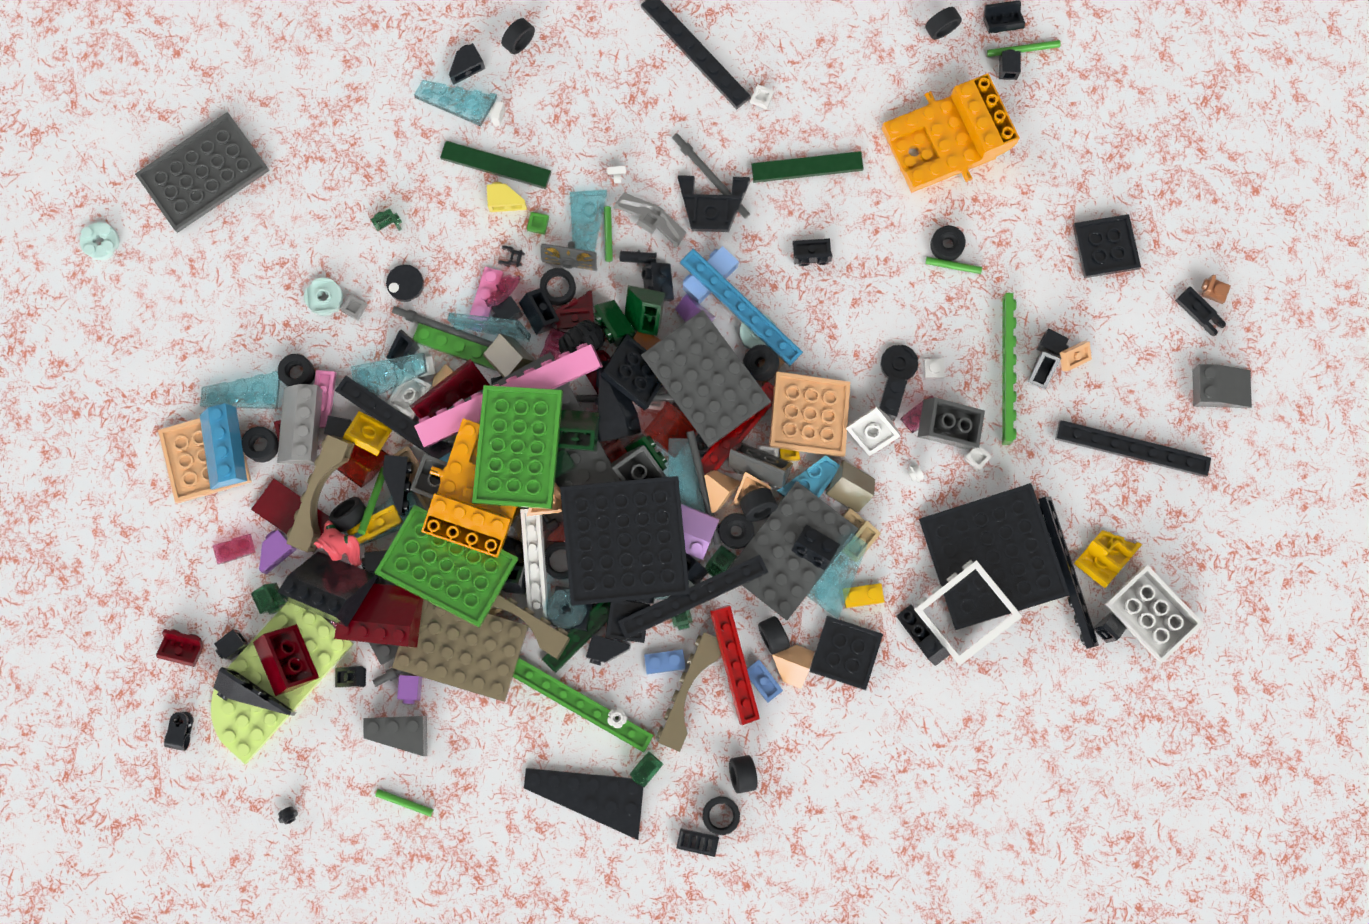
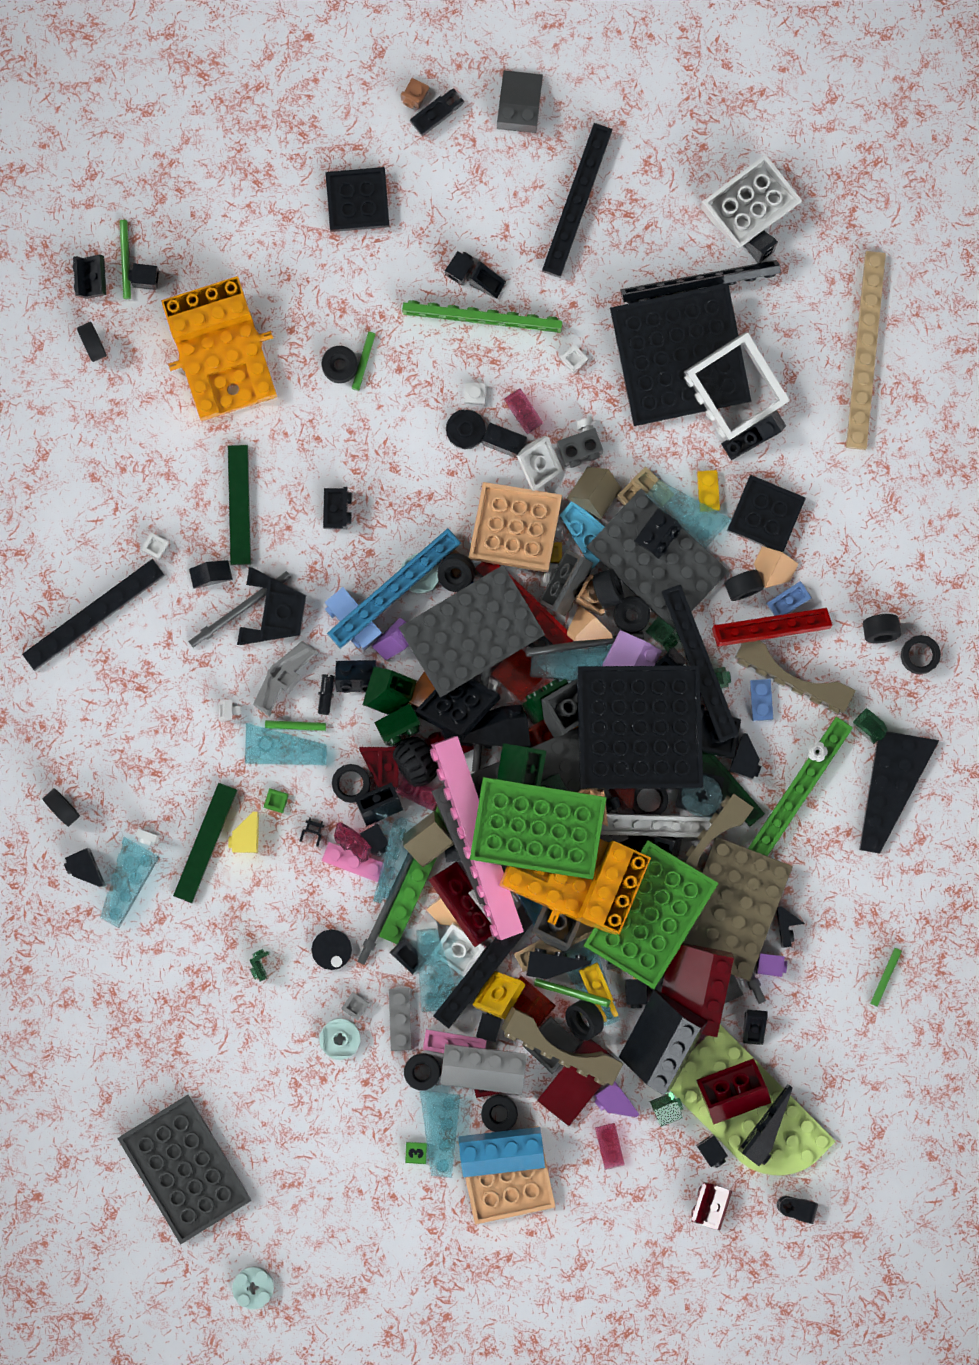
camera: 85 degrees left, 5 degrees up
(223, 373) = (416, 1152): none -> bright green tile
(287, 815) = (891, 1097): black plate -> none
(332, 492) = (558, 1036): none -> dark grey plate
(337, 544) = (618, 1029): coral hair -> none
(344, 349) = (400, 1019): none -> light grey plate
(398, 732) = (815, 978): dark grey wedge -> none
(452, 699) = (785, 920): none -> black slope
(569, 256) = (323, 767): dark grey shield -> none
(696, 850) = (939, 696): black slope -> none
(741, 148) = (210, 573): none -> black slope
(897, 468) = (578, 443): none -> dark grey brick
(951, 423) = (539, 382): dark grey brick -> none
(1019, 740) = (865, 350): none -> tan plate
(1075, 356) = (476, 246): light nougat plate -> none
(1106, 557) = (687, 241): yellow slope -> none

